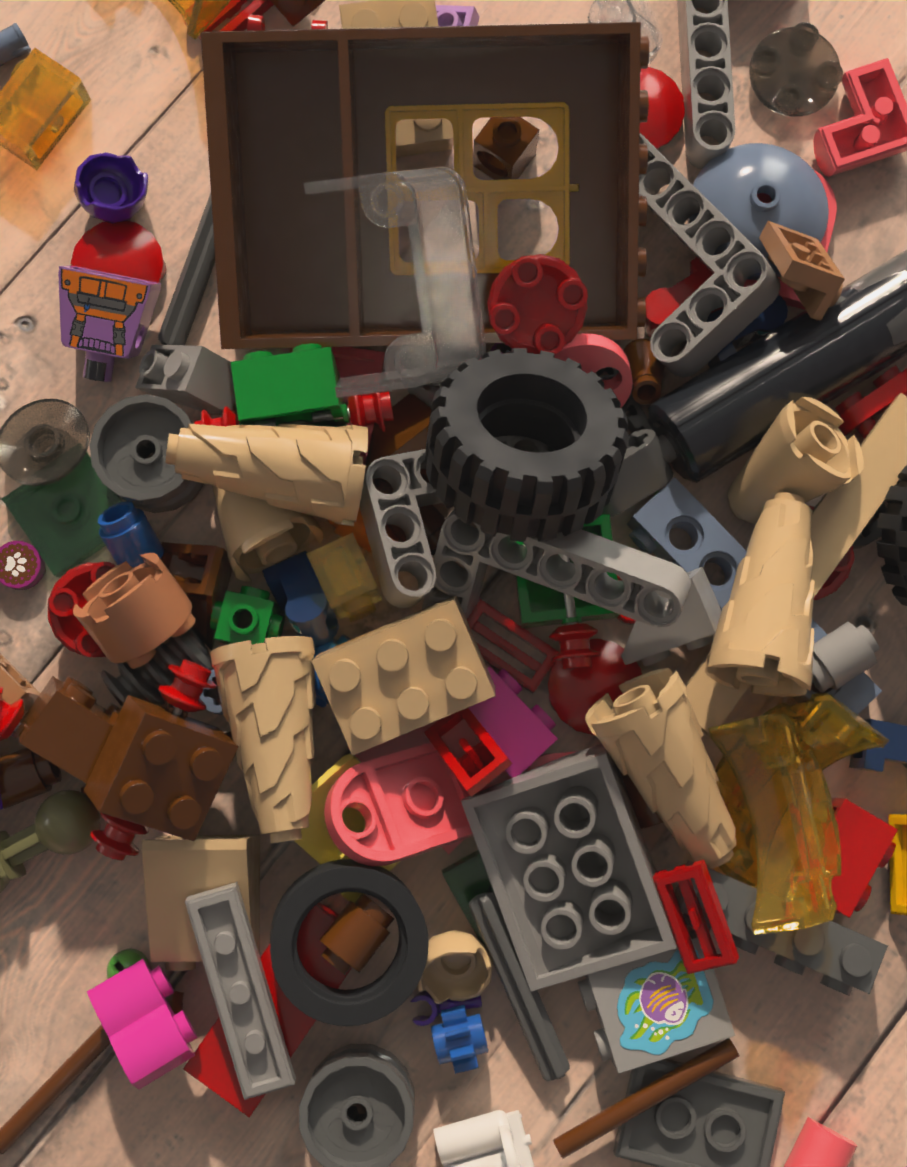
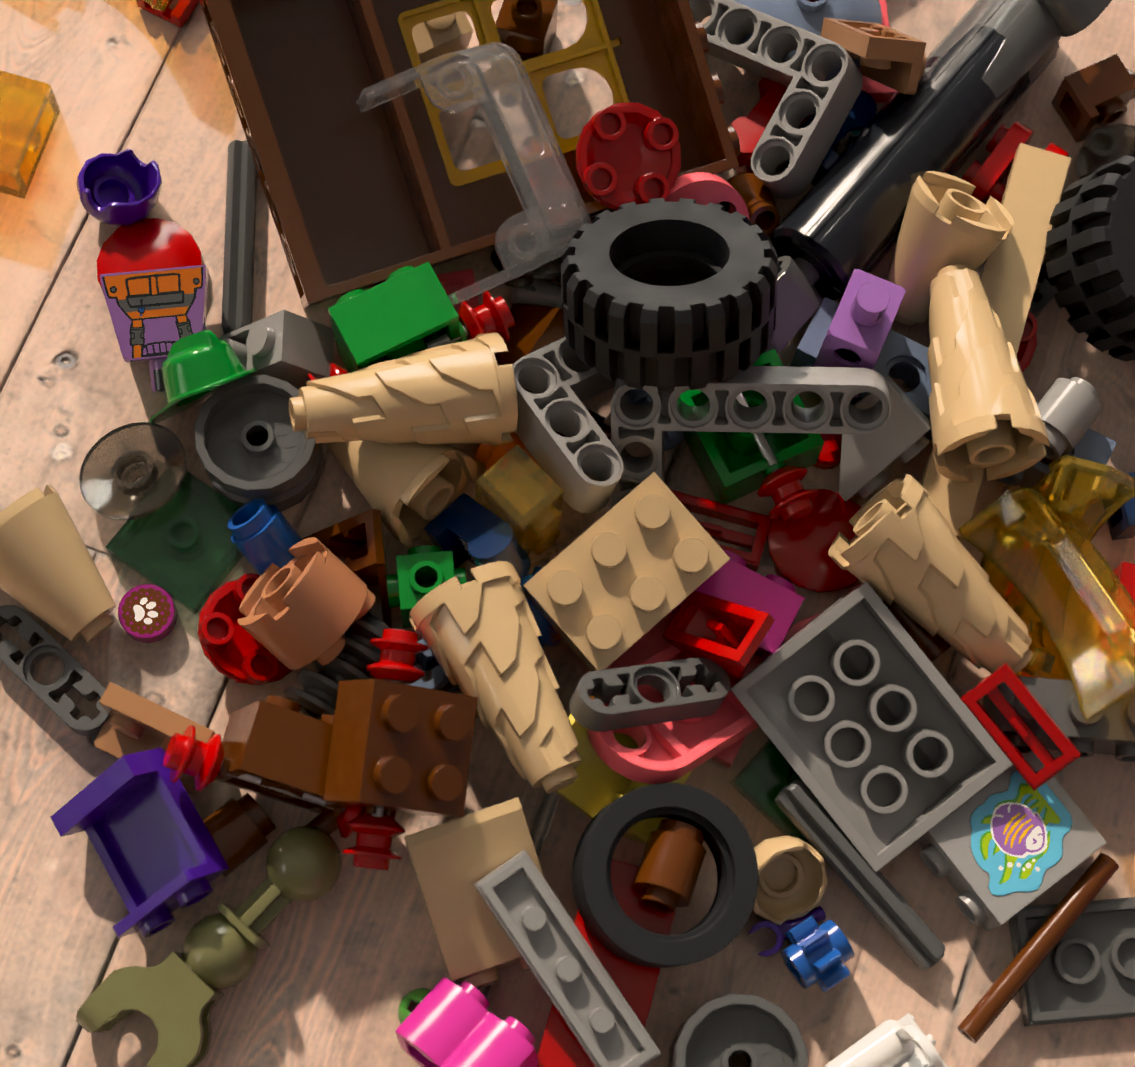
camera: 25 degrees left, 10 degrees down
(116, 376) = (196, 370): none -> green piece
(368, 798) = (633, 710): none -> dark grey beam
(687, 521) = (861, 321): none -> medium lavender torso

